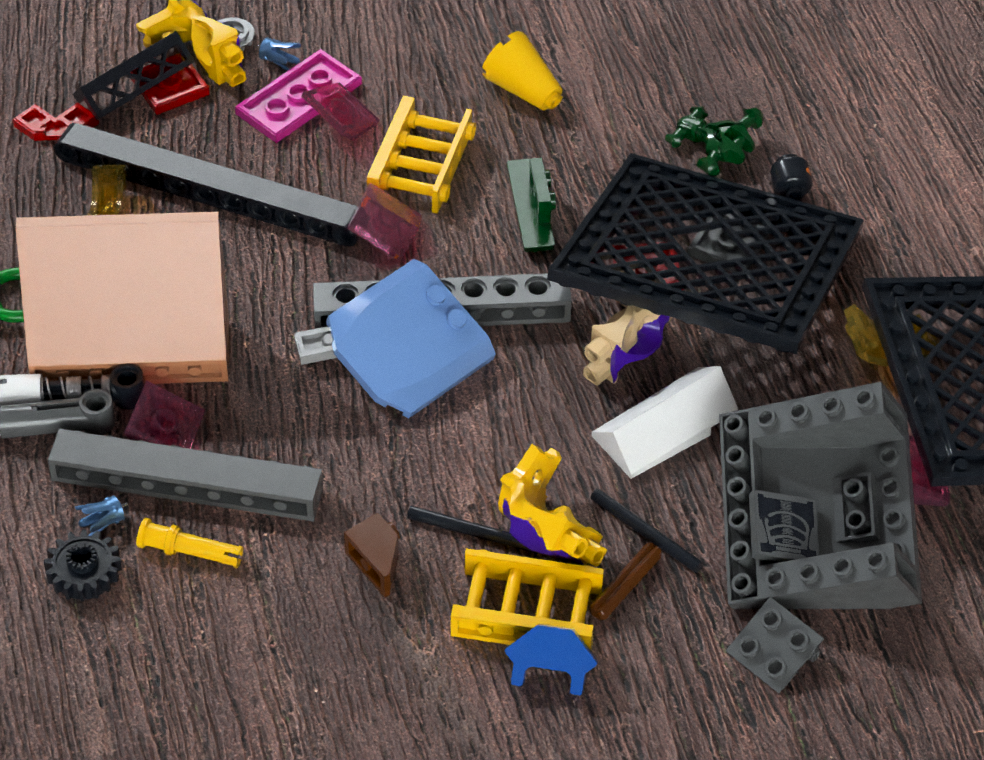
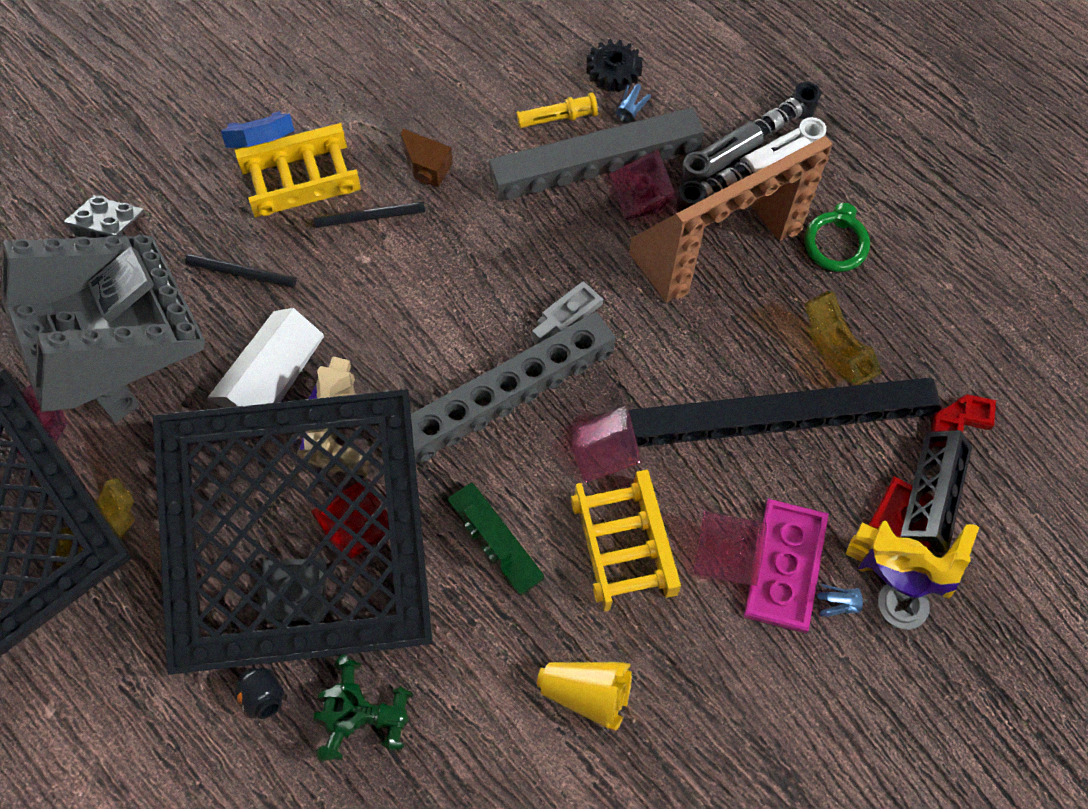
camera: 150 degrees right, 15 degrees up
(408, 339) = (508, 324): medium blue wedge -> none
(540, 530) = (291, 213): yellow hips -> none
(625, 581) = (236, 223): reddish brown axle -> none

